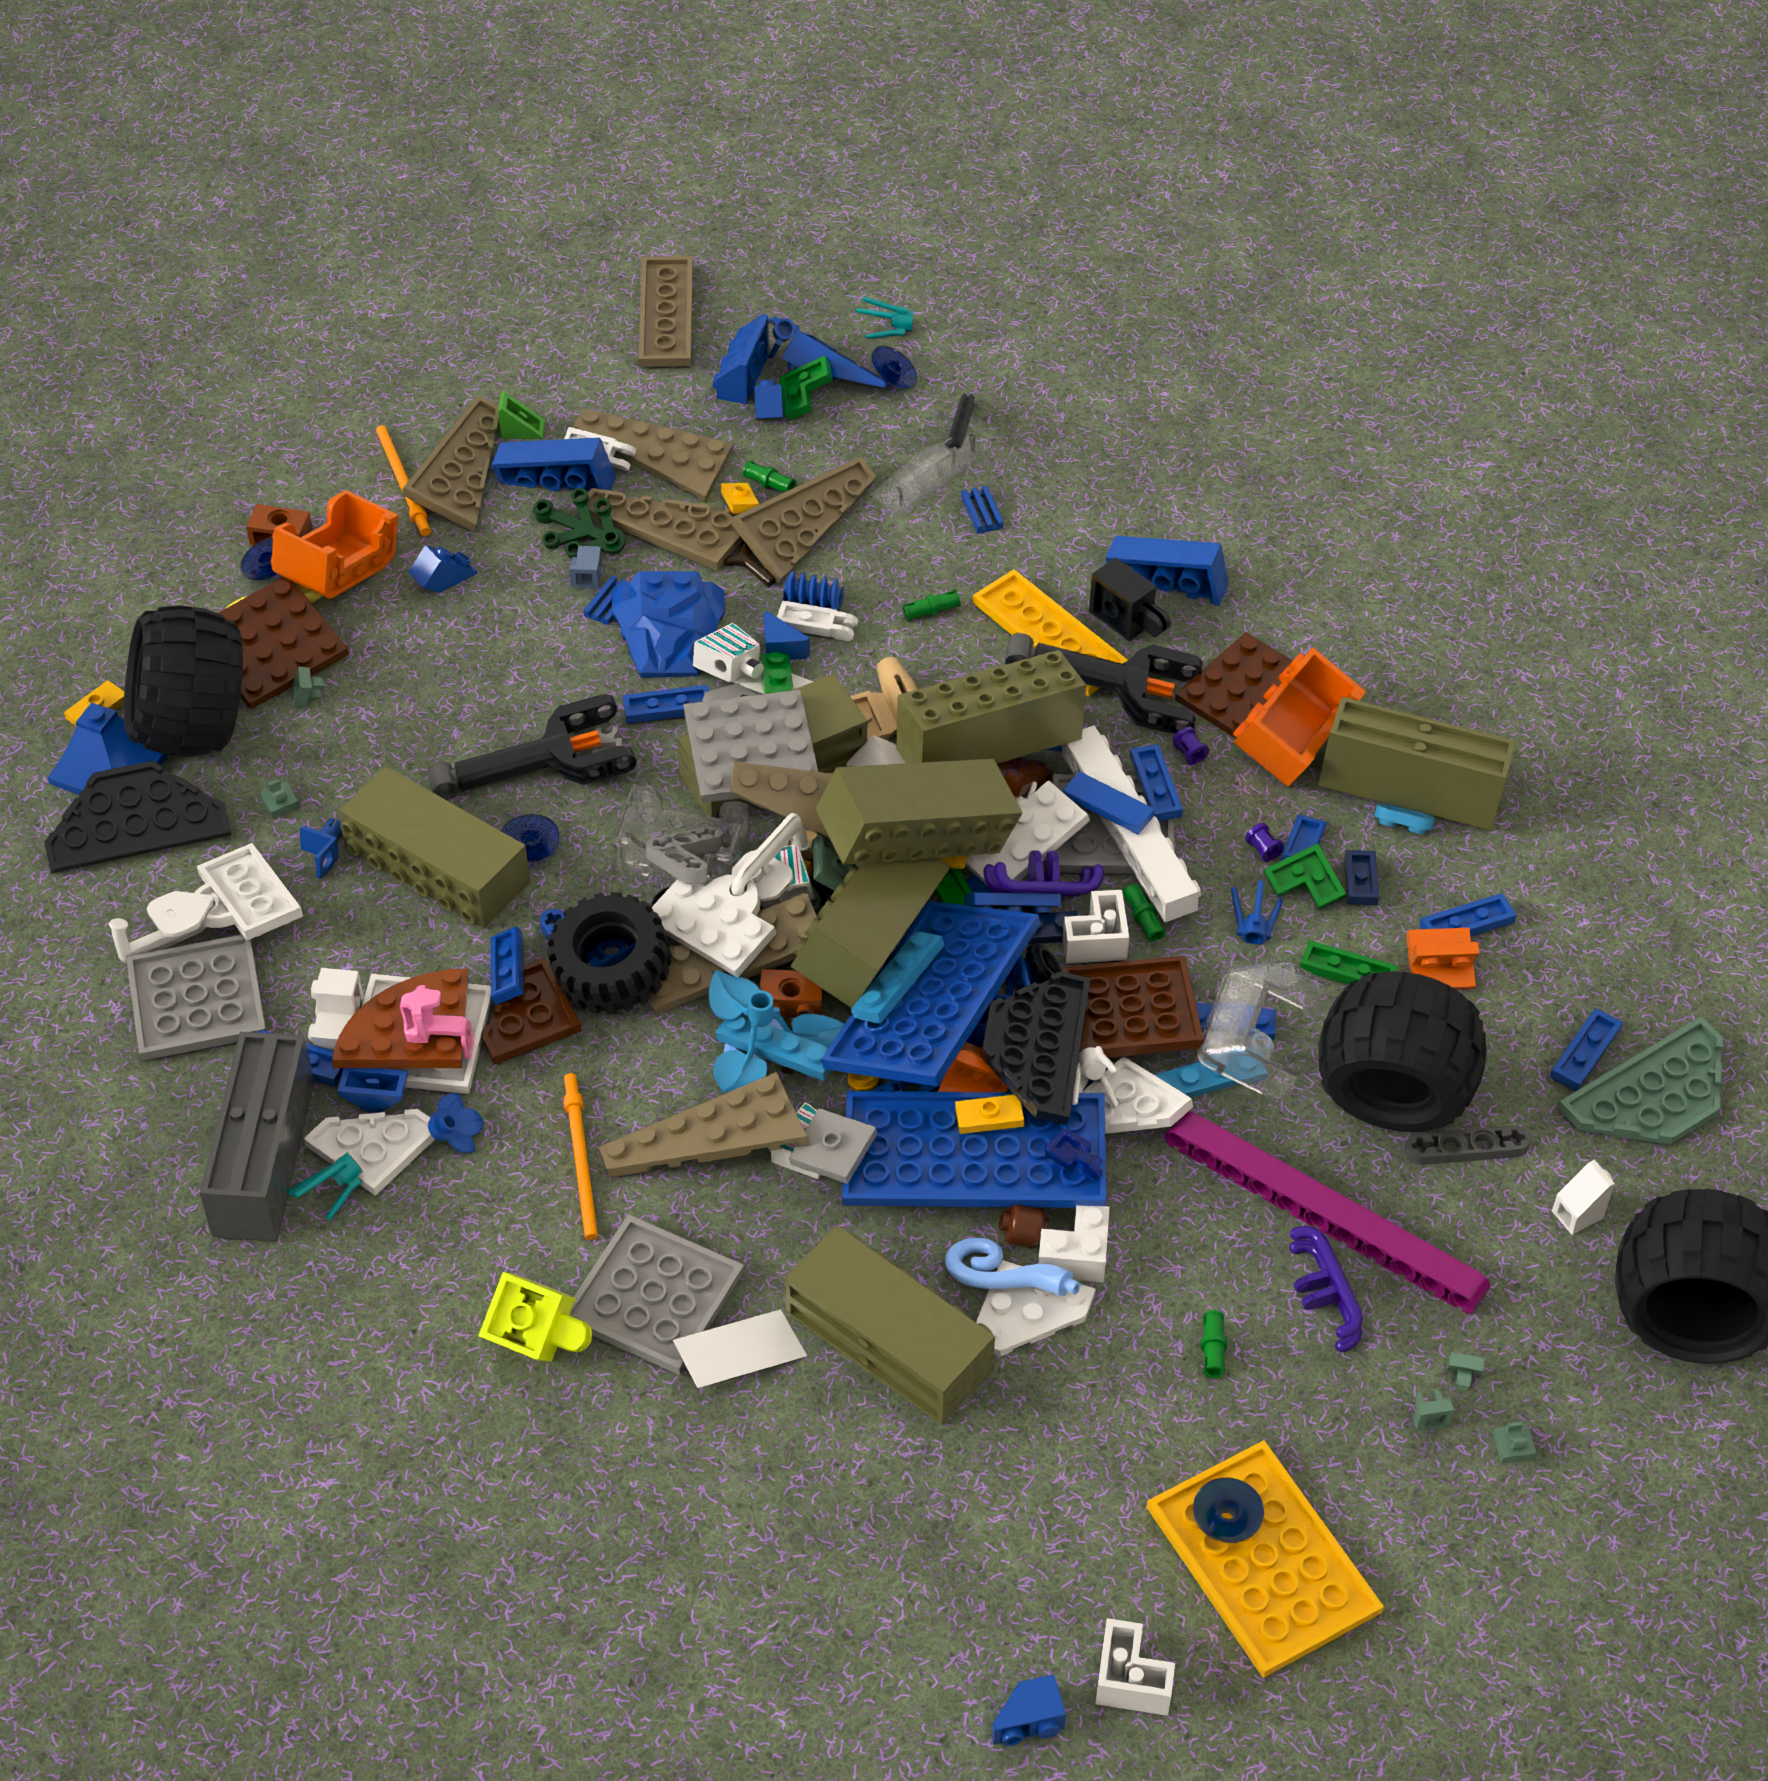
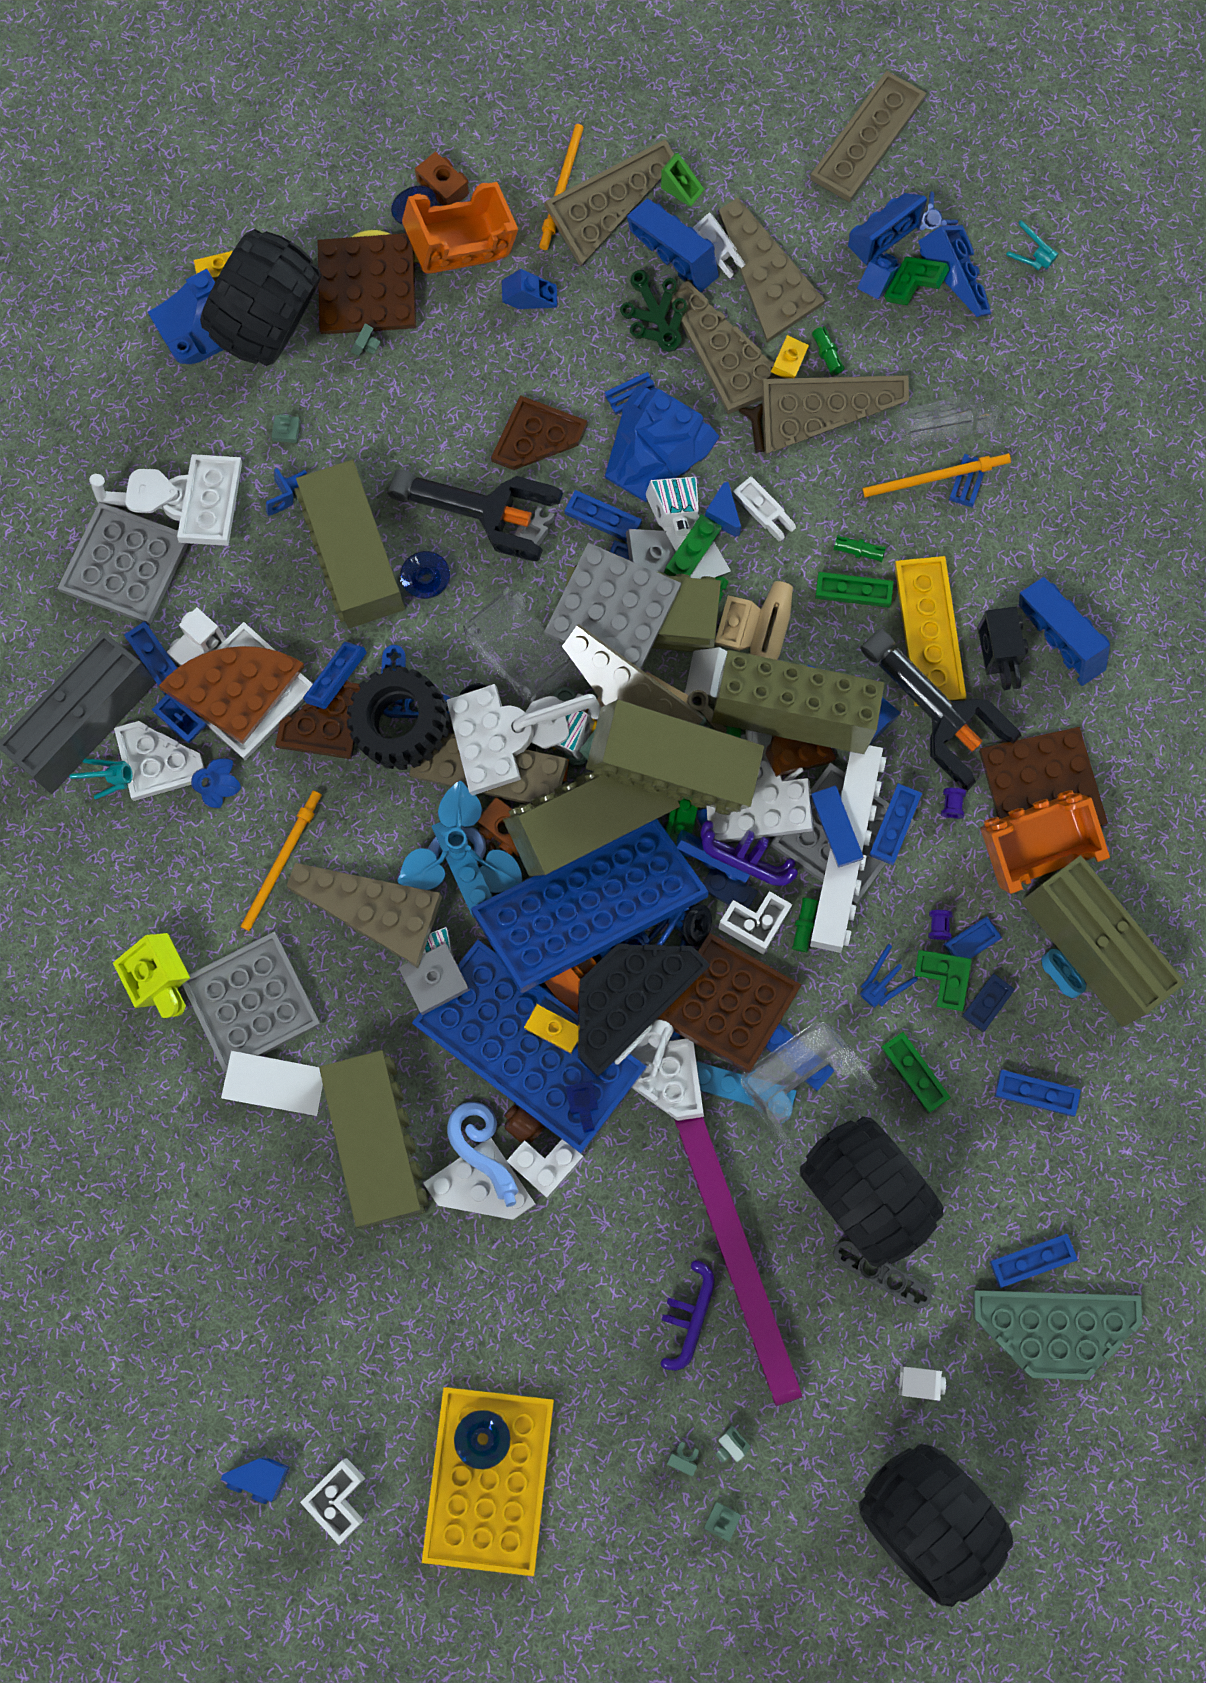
camera: 40 degrees right, 25 degrees up
(133, 814) = (176, 384): black plate -> none
(421, 1023) = (232, 696): bright pink piece -> none
(545, 673) = (536, 434): none -> reddish brown plate
(586, 567) = (632, 354): sand blue brick -> none
(677, 853) = (503, 661): light grey beam -> none
(812, 592) = (778, 484): blue piece -> none
(894, 367) = (1001, 301): clear blue dish -> none
(897, 977) = (574, 875): dark azure plate -> none
(954, 637) = (854, 589): none -> green plate
(961, 421) = (1006, 392): black axle -> none
(985, 487) = (983, 464): none -> light orange bar
(1213, 1344) = (580, 1302): green pin -> none
(1443, 955) = (987, 1114): orange bracket -> none

